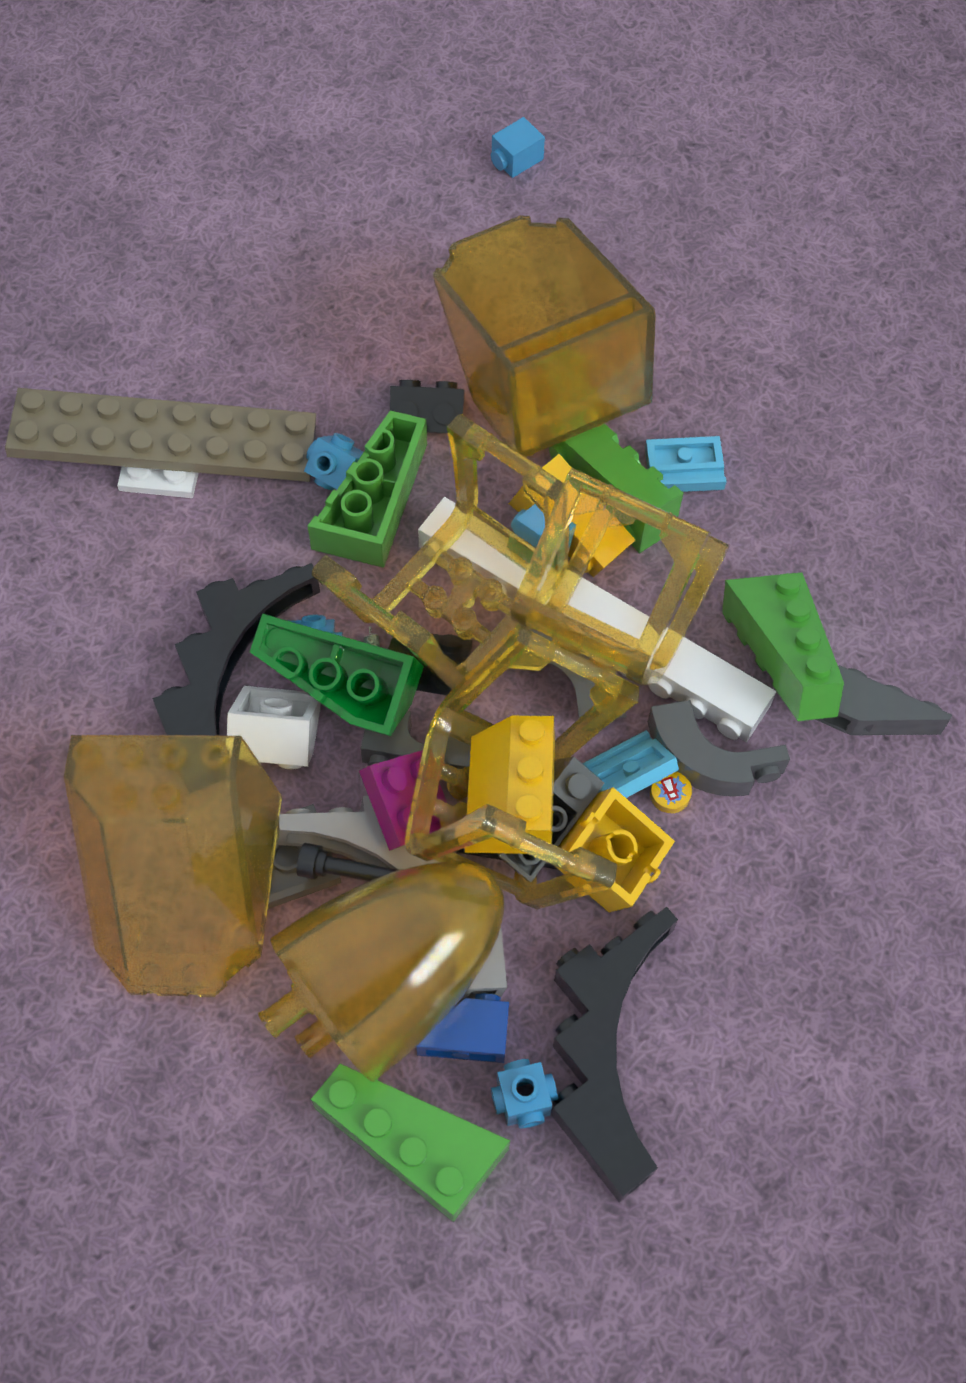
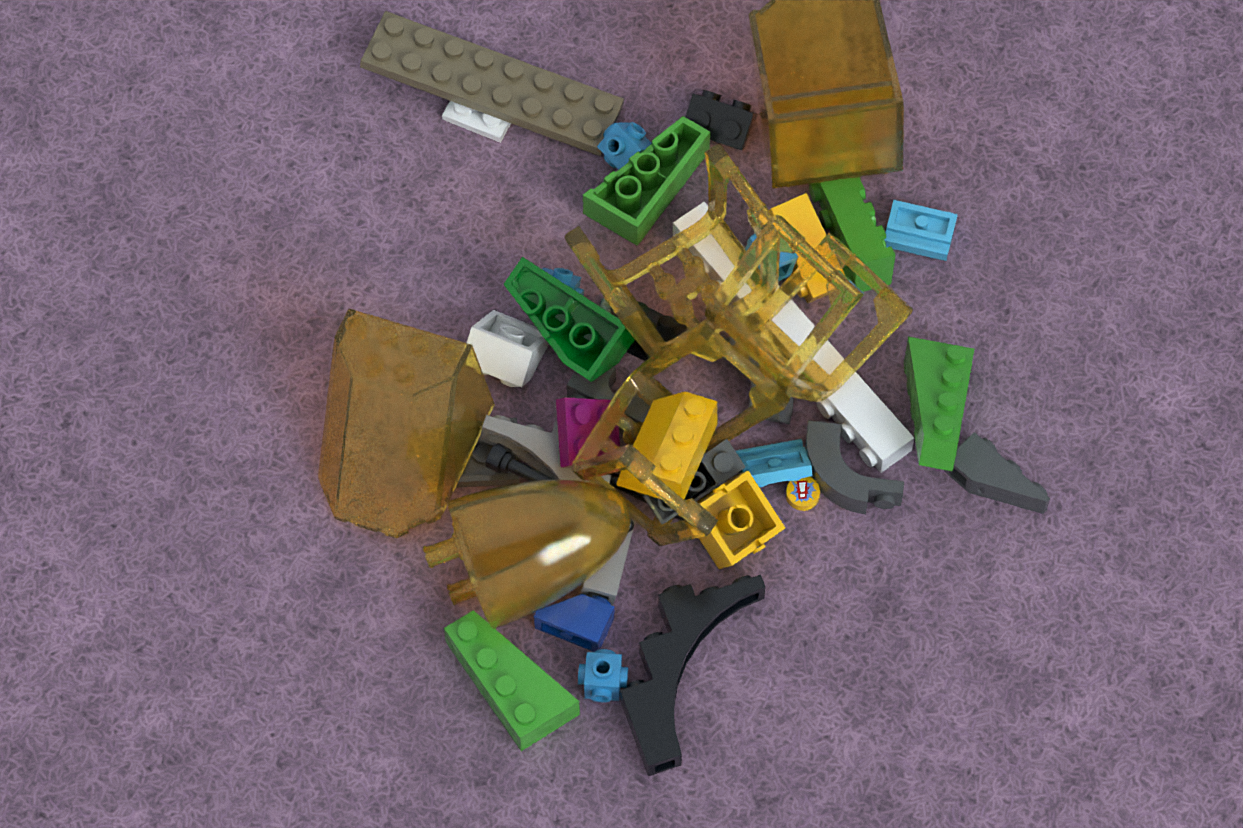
camera: 20 degrees right, 0 degrees up
(212, 655) = (477, 277): black arch -> none

